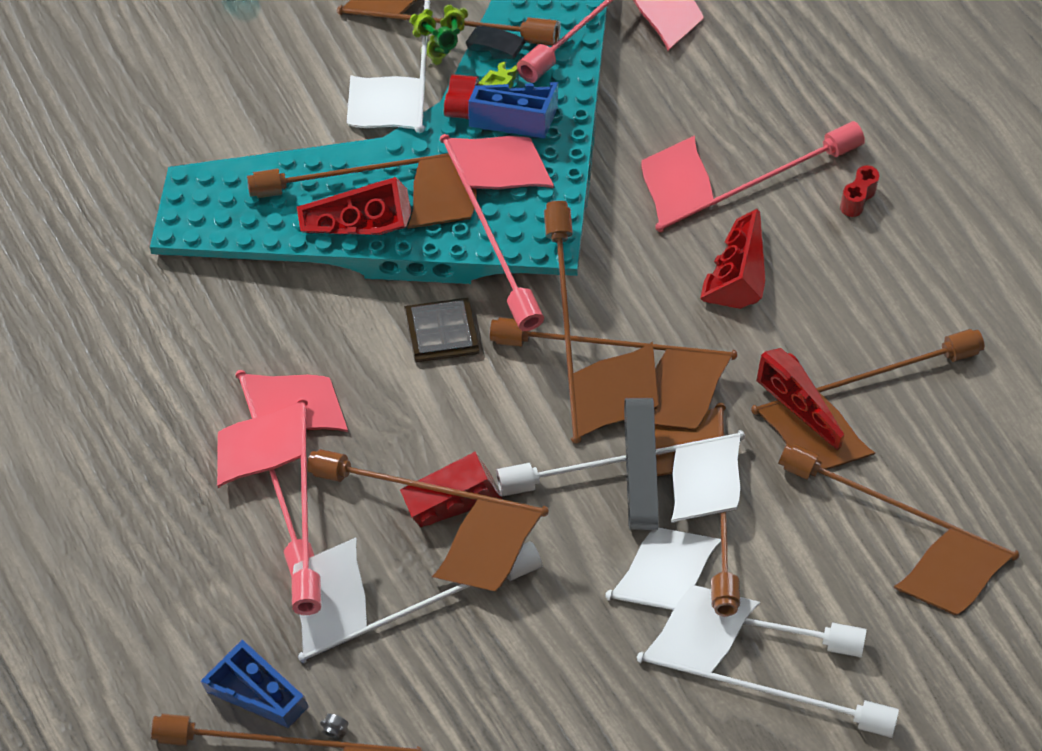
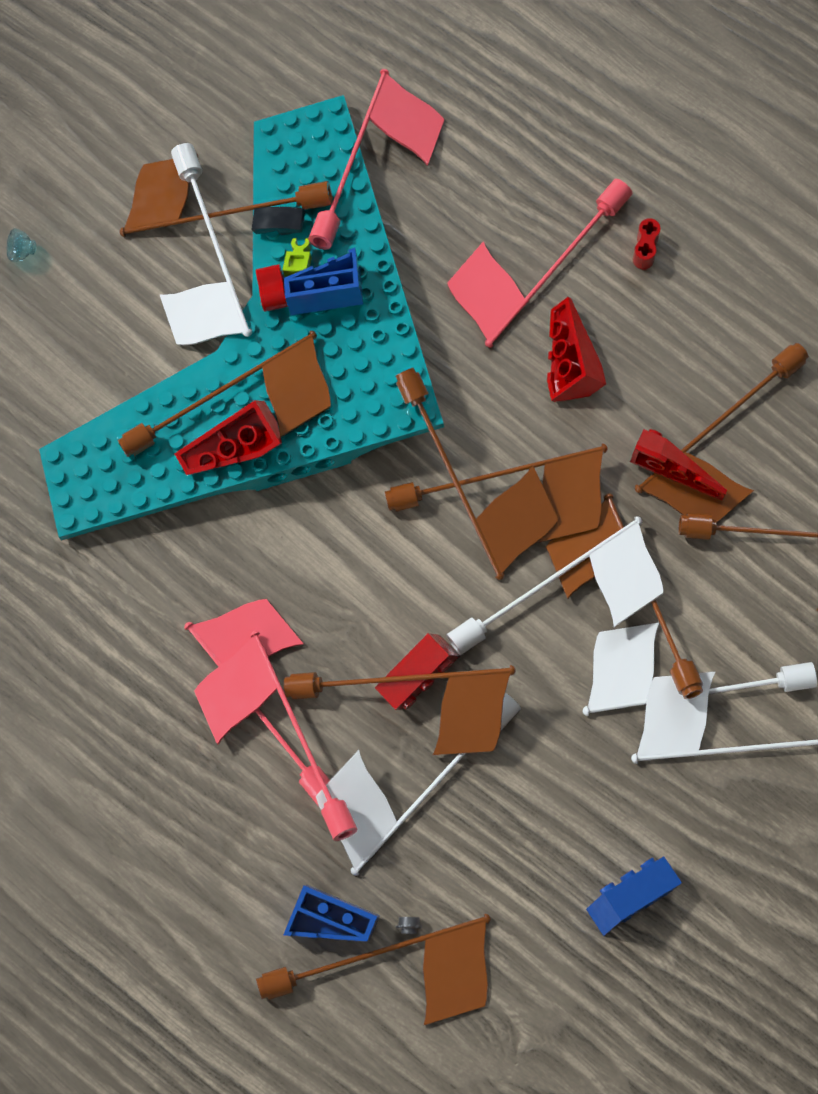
camera: 15 degrees left, 15 degrees up
(441, 330) = (343, 515): clear piece -> none
(444, 38) = (232, 236): lime plant -> none
(501, 165) = (332, 347): coral flag -> none
(641, 464) = (567, 583): dark grey beam -> none

